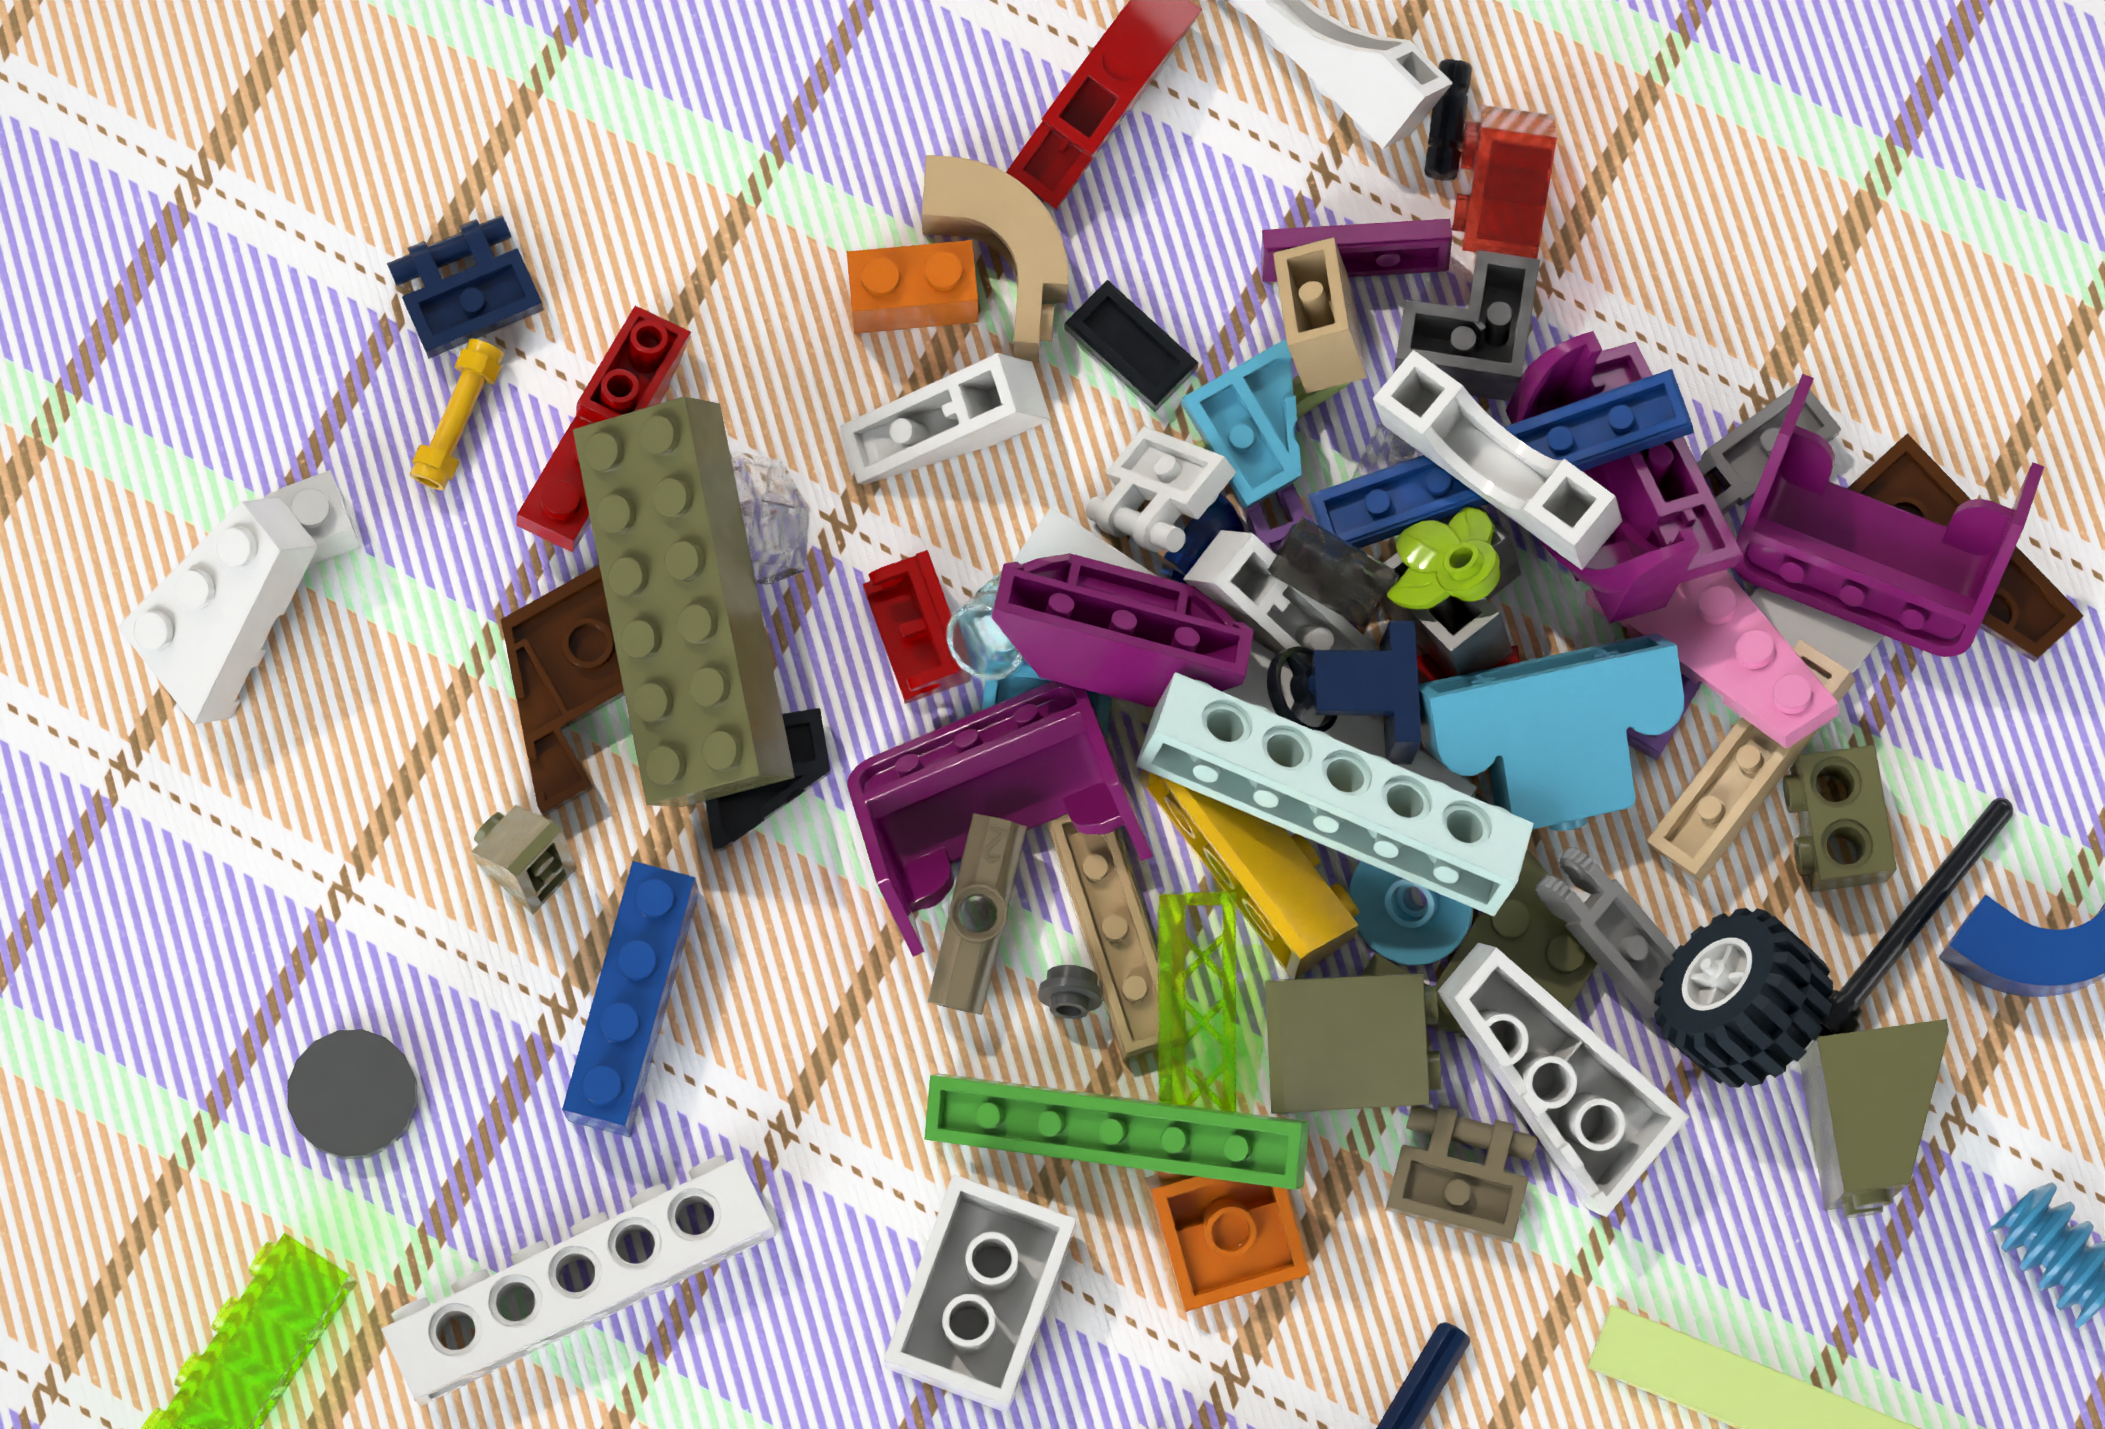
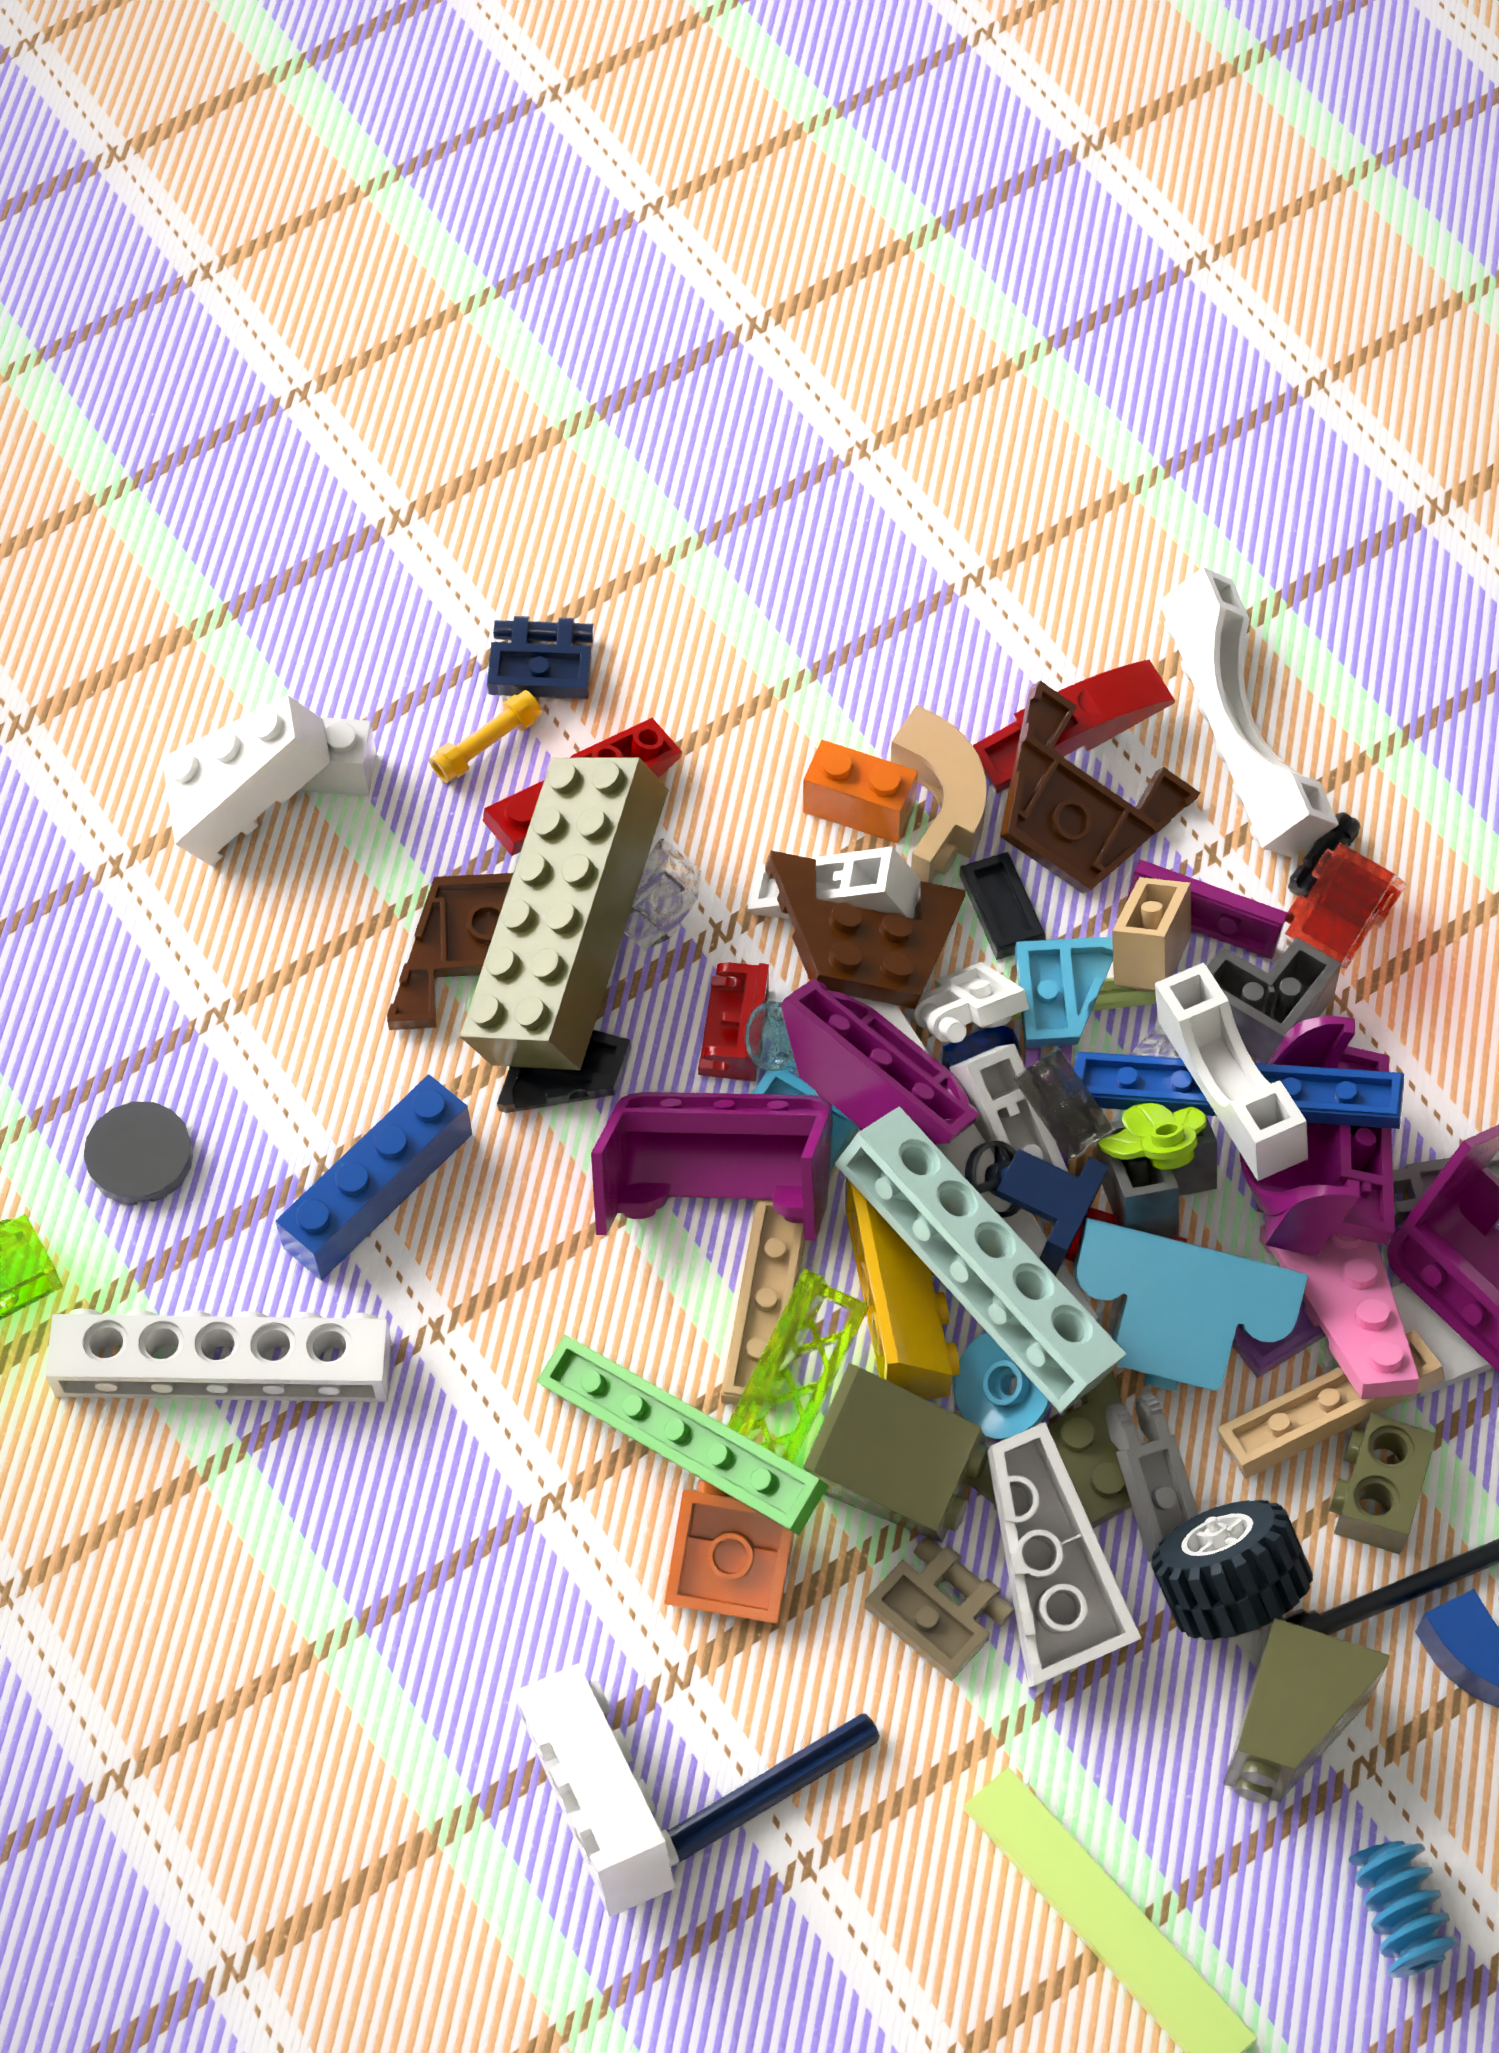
camera: 30 degrees right, 15 degrees down
(524, 855) = (356, 1043): olive slope -> none
(980, 1293) = (511, 1508): white brick -> none
(986, 872) = (643, 1263): dark tan piece -> none
(1019, 486) = (860, 948): none -> reddish brown wing
(1070, 991) = (706, 1326): dark grey plate -> none
(1155, 211) = (1068, 816): none -> reddish brown wing

